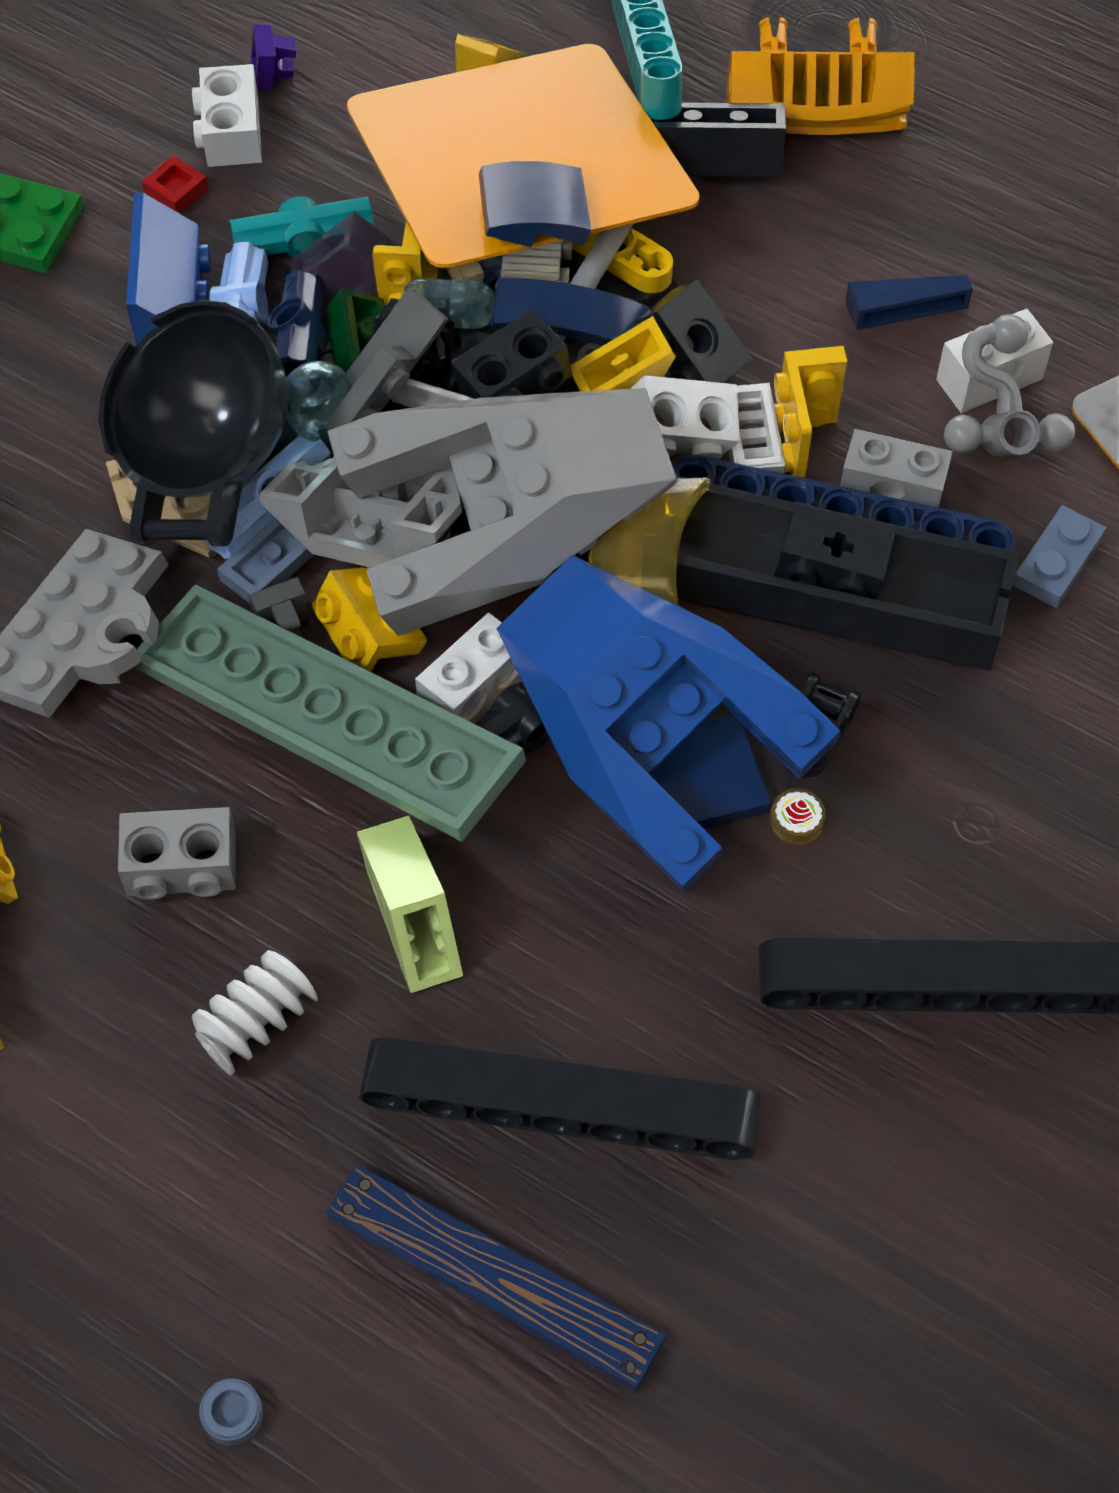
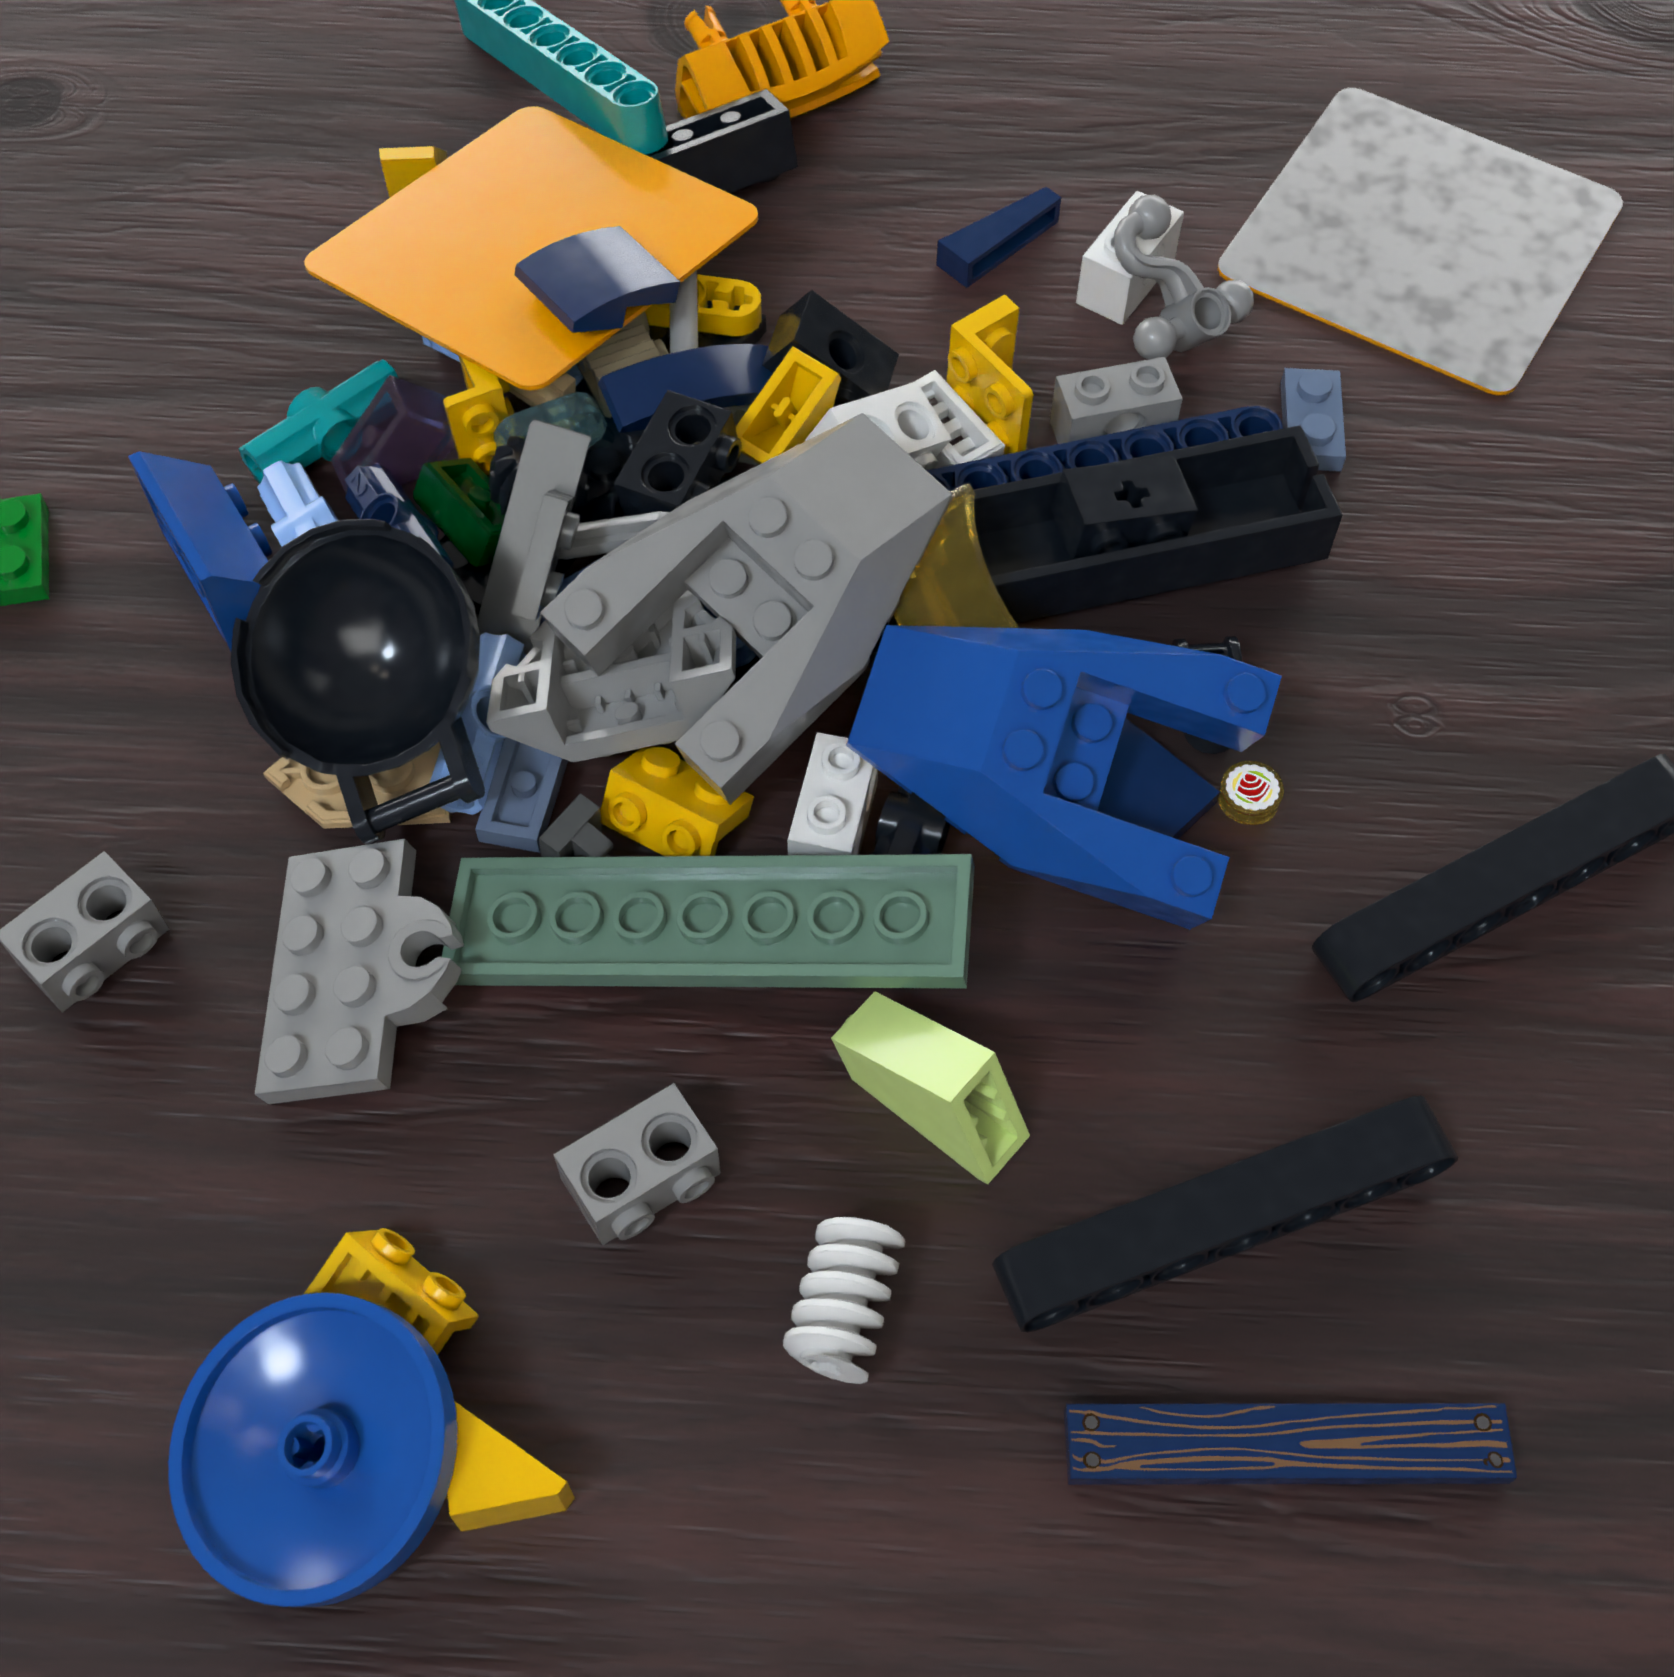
camera: 30 degrees left, 0 degrees up
(175, 184) = (143, 432): red tile -> none
(228, 115) = (162, 339): white brick -> none
(269, 56) = (165, 261): dark purple tile -> none
(314, 396) = (488, 577): clear light blue hair -> none

